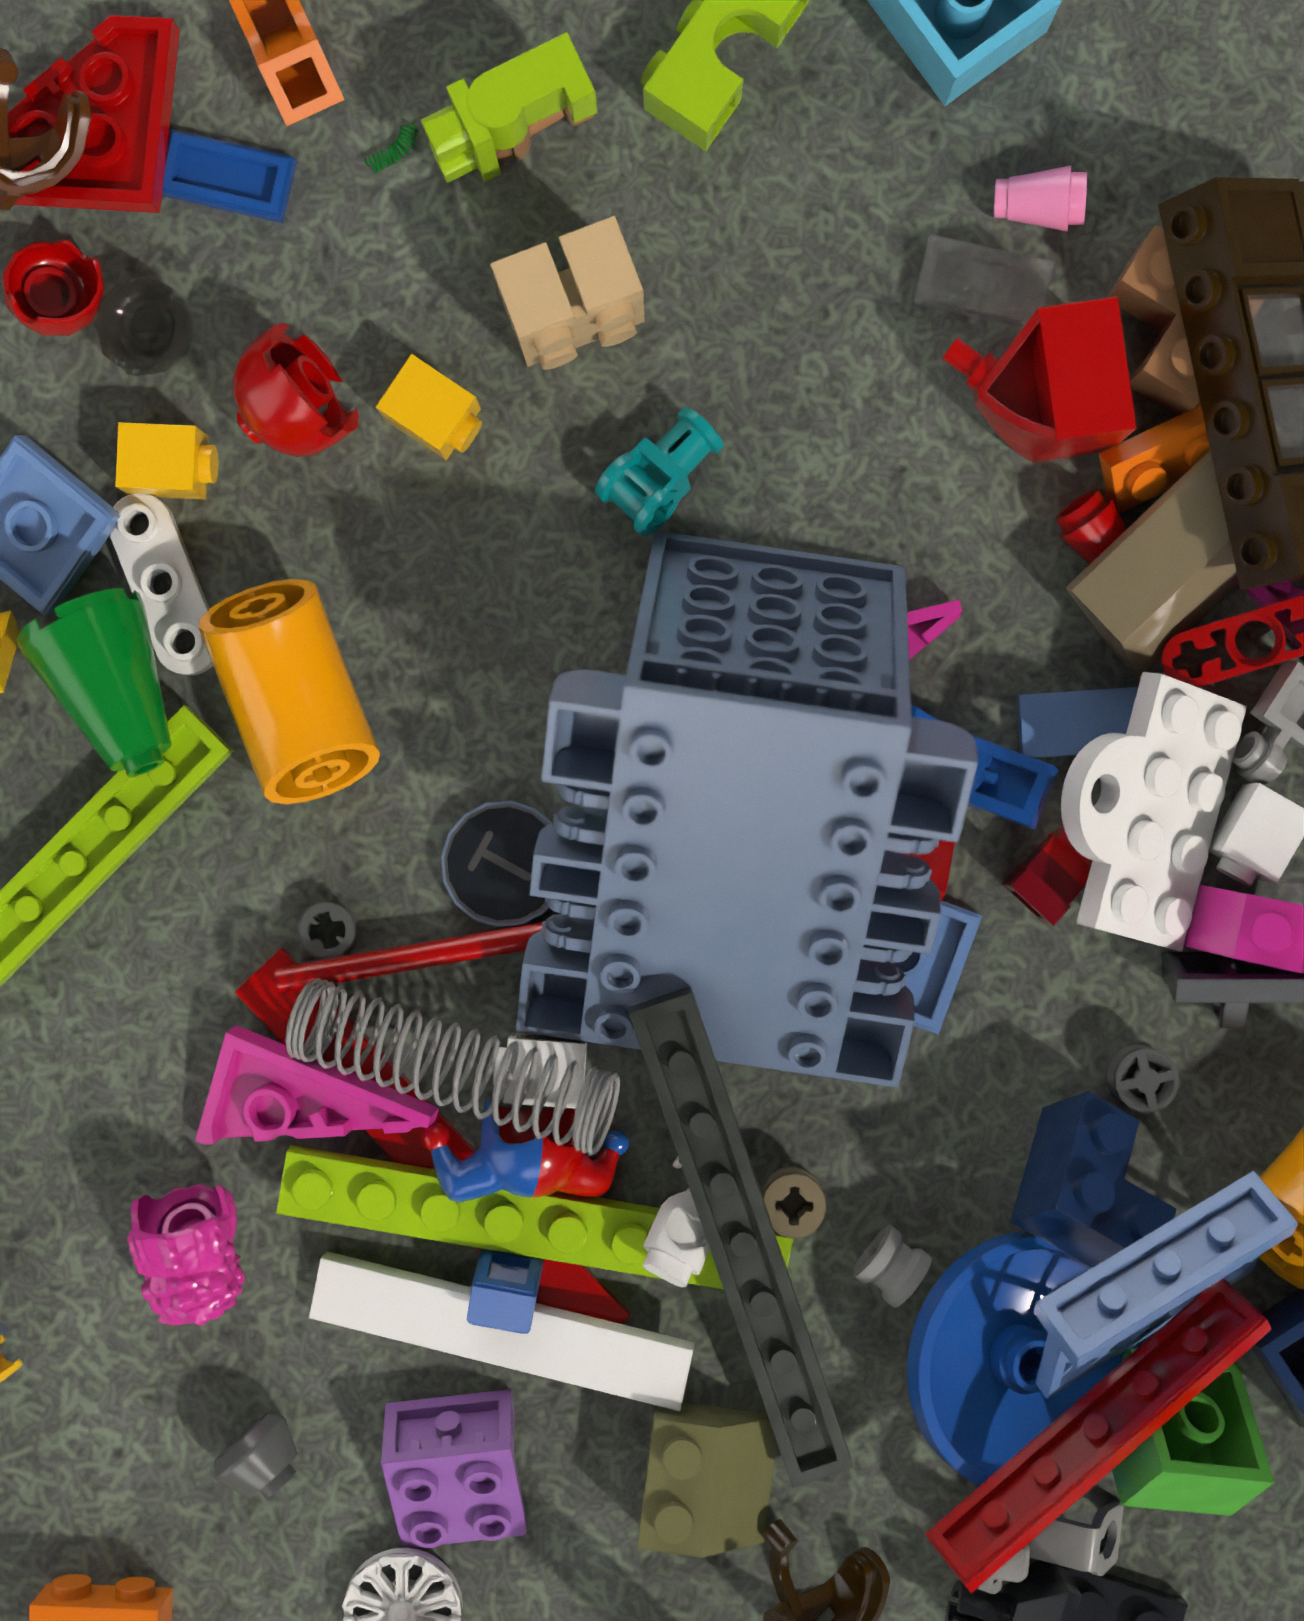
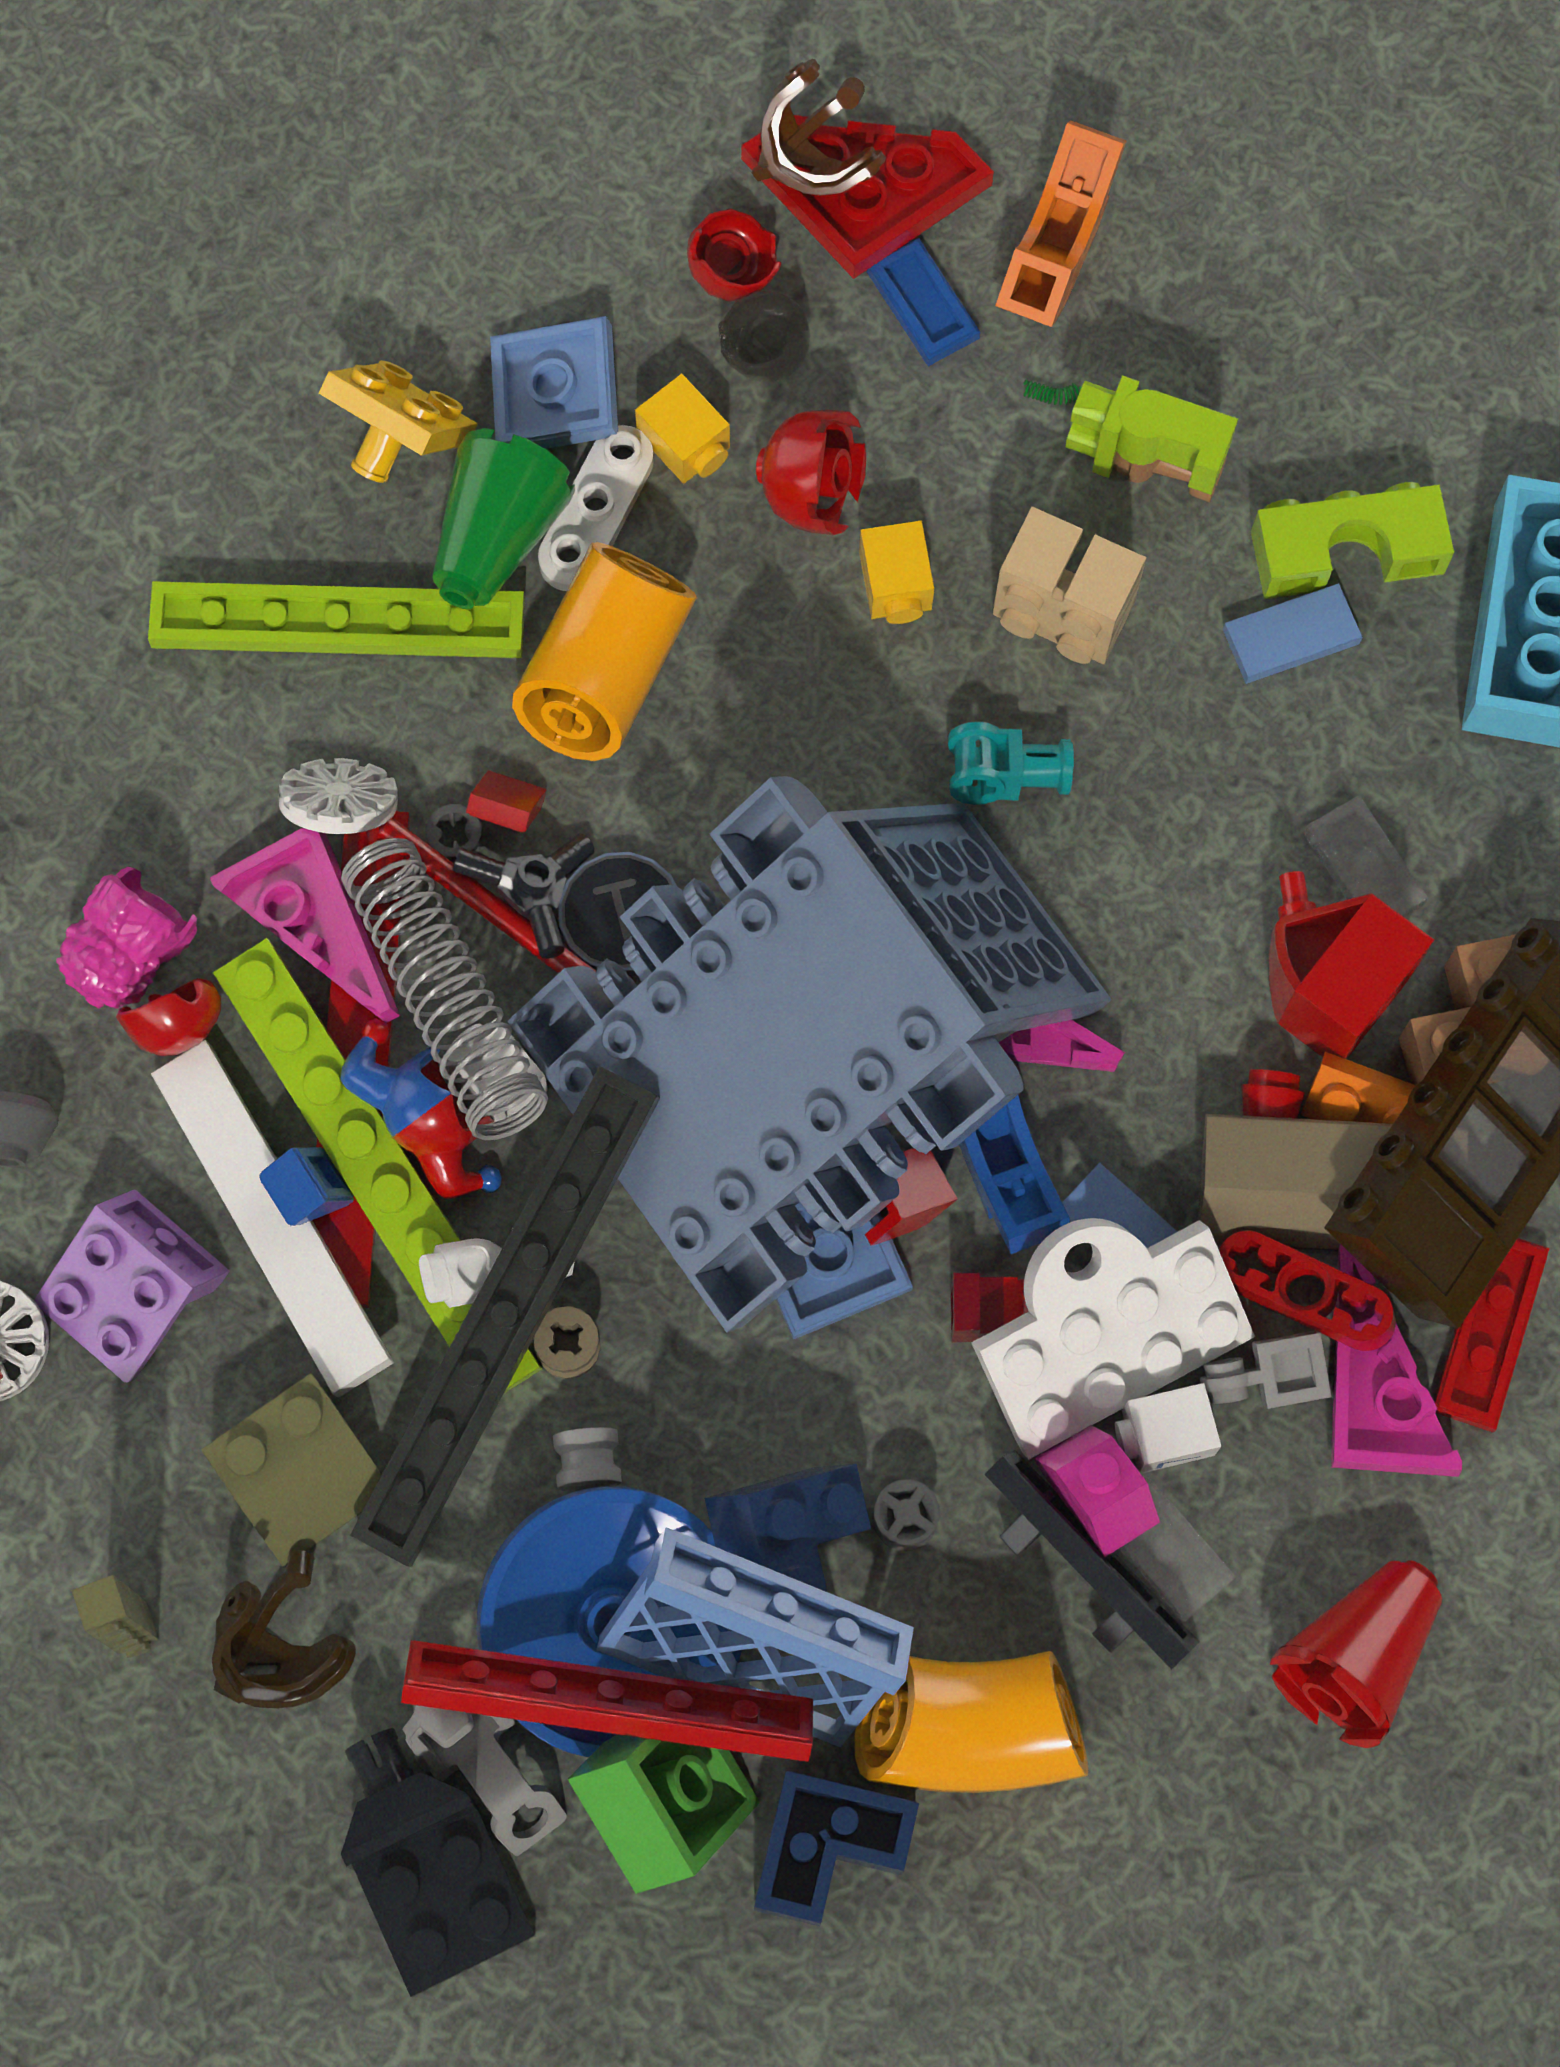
camera: 45 degrees right, 15 degrees down
(221, 994) = (339, 794): none -> white wheel
(285, 1287) = (175, 1020): none -> red hair
(339, 870) = (506, 801): none -> red tile
(424, 914) = (531, 885): none -> black piece
(754, 157) = (1292, 633): none -> medium blue tile
(1043, 198) = (1466, 853): bright pink cone -> none

